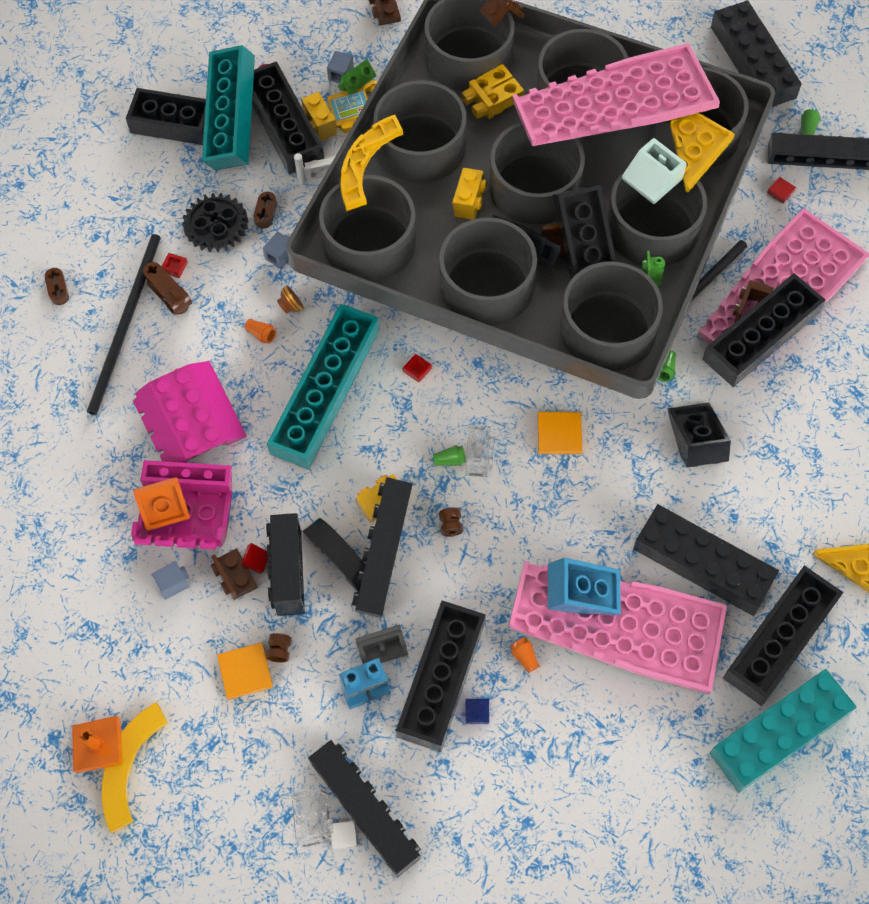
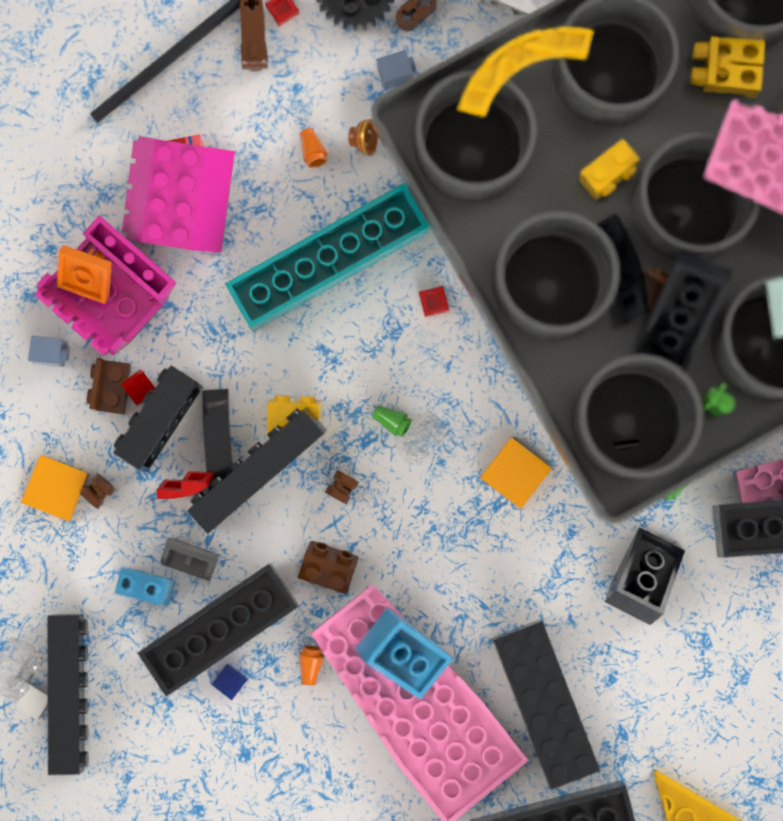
camera: 35 degrees right, 20 degrees up
(344, 591) = (189, 485): none -> red slope
(484, 581) = (328, 567): none -> reddish brown bracket

